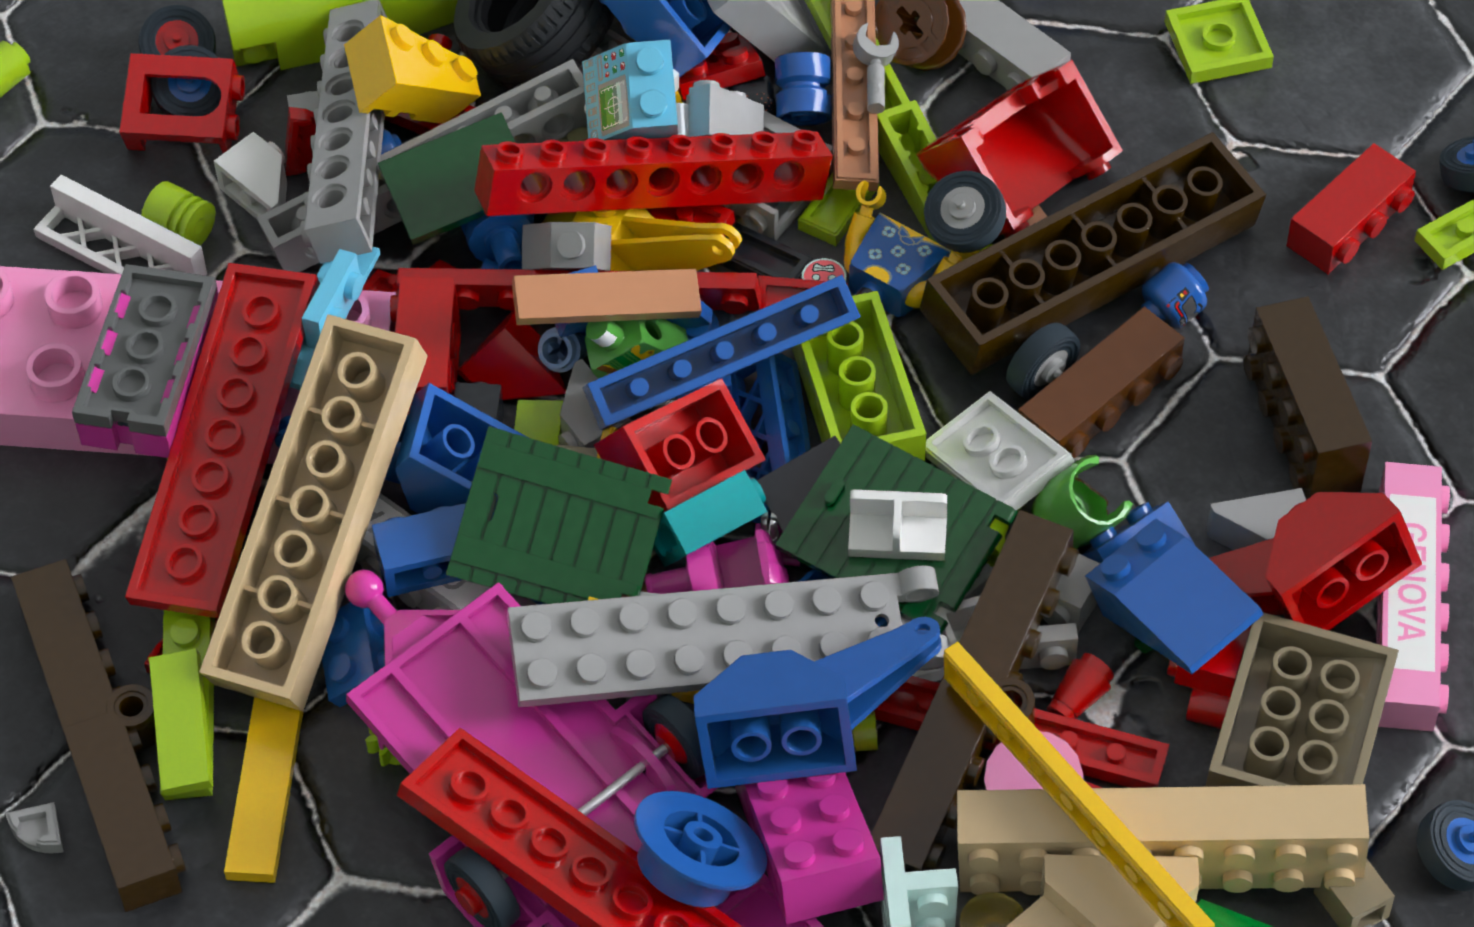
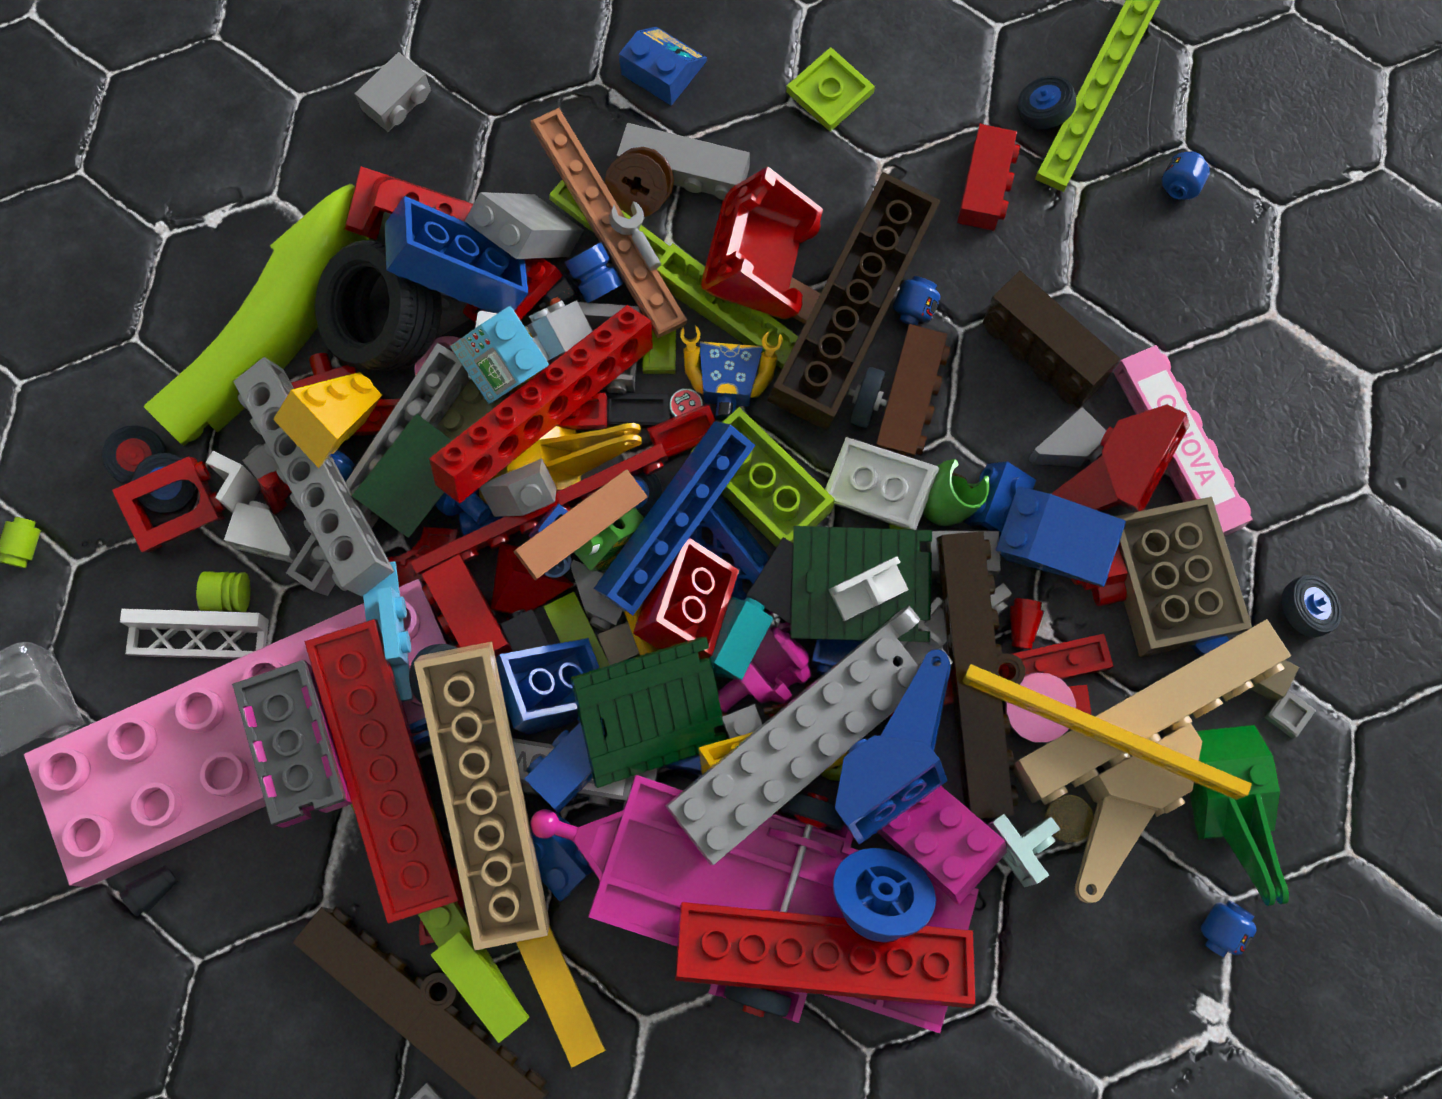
camera: 30 degrees left, 20 degrees up
(265, 108) = (239, 482): none -> white panel
(965, 211) = (767, 321): black wheel -> none

